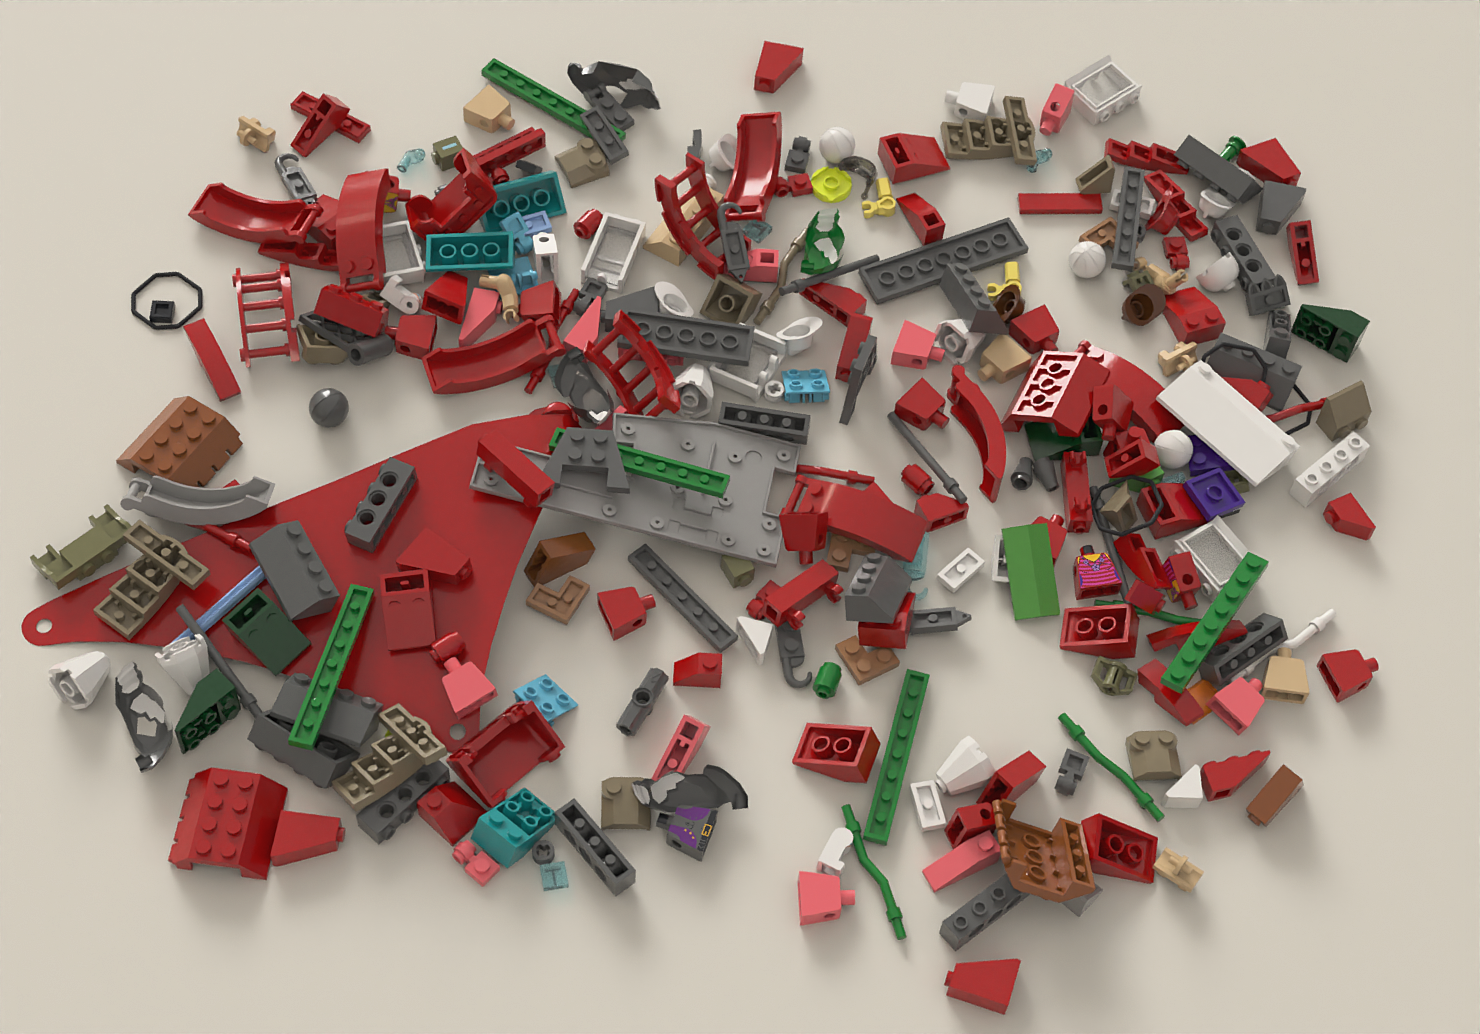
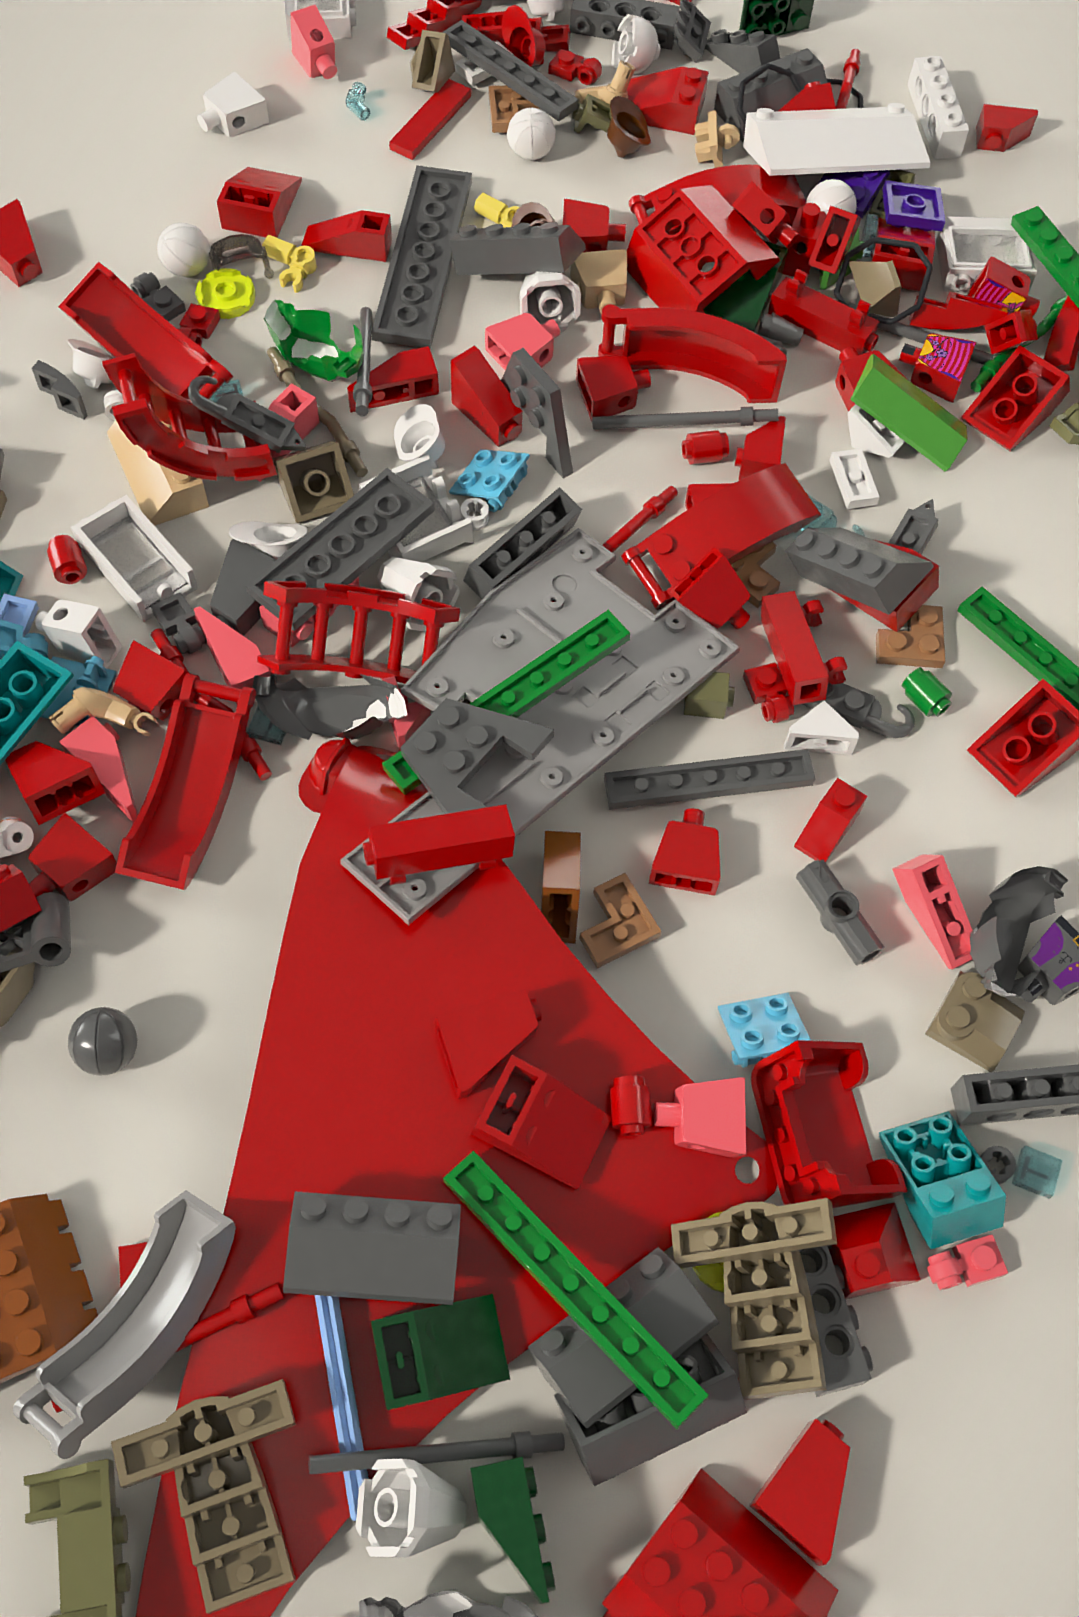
camera: 55 degrees left, 5 degrees up
(369, 536) = (323, 1001): dark grey brick -> none
(994, 136) = (297, 114): dark tan slope -> none
(1345, 412) = (880, 56): dark tan slope -> none

